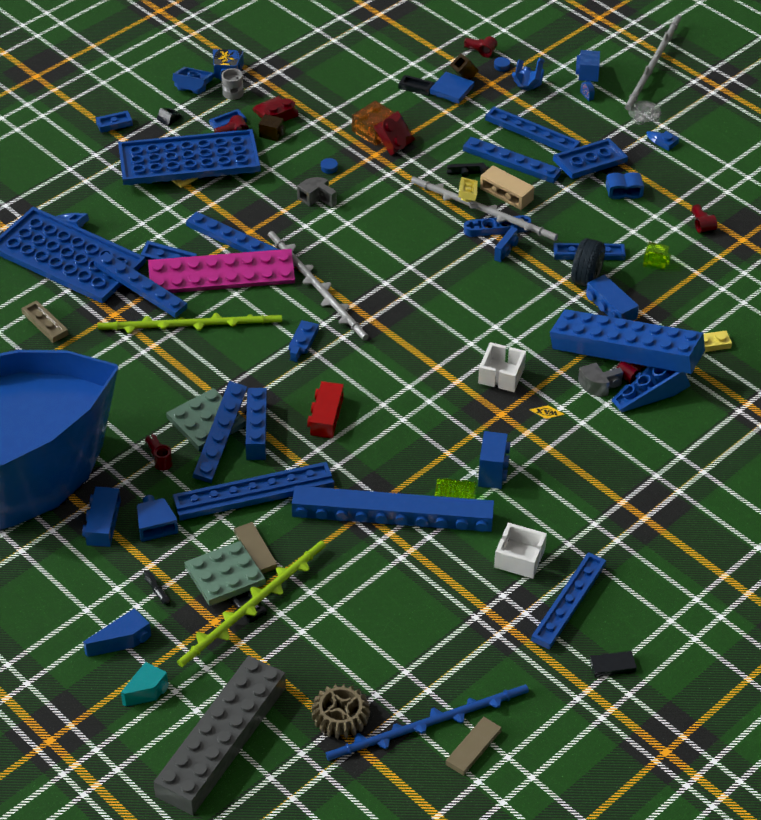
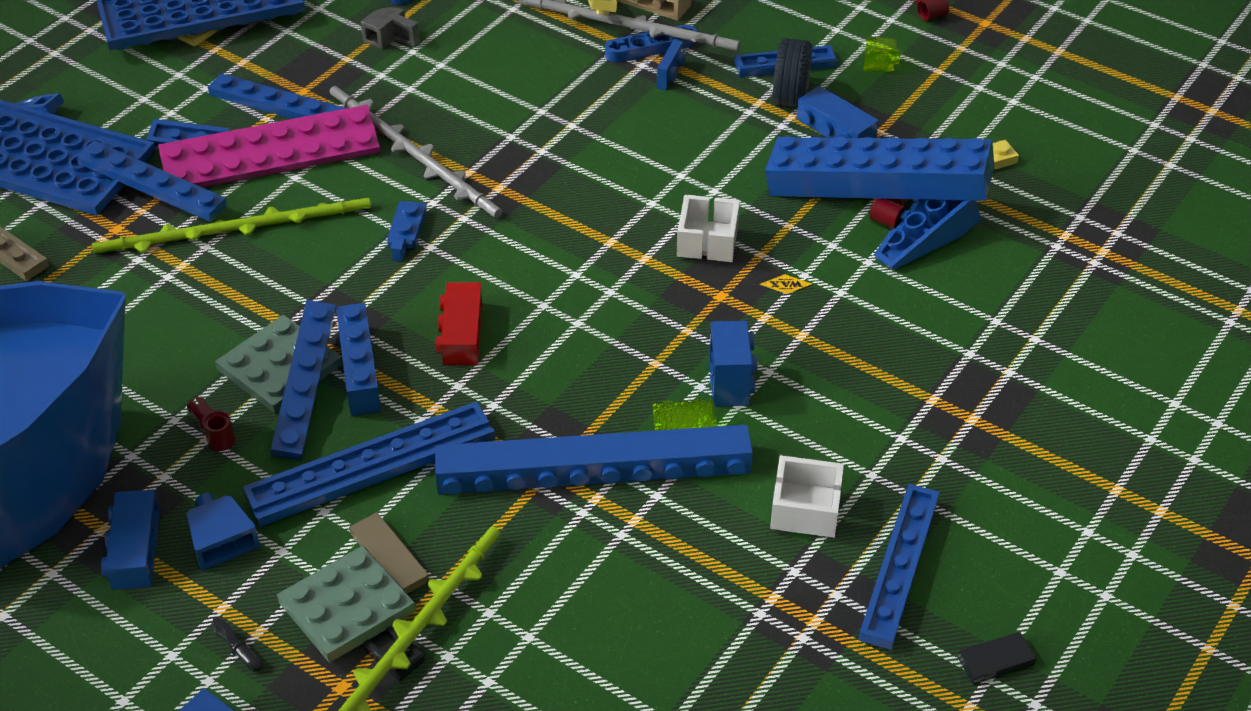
camera: 10 degrees left, 0 degrees up
(598, 382) = (850, 232): flat silver brick -> none

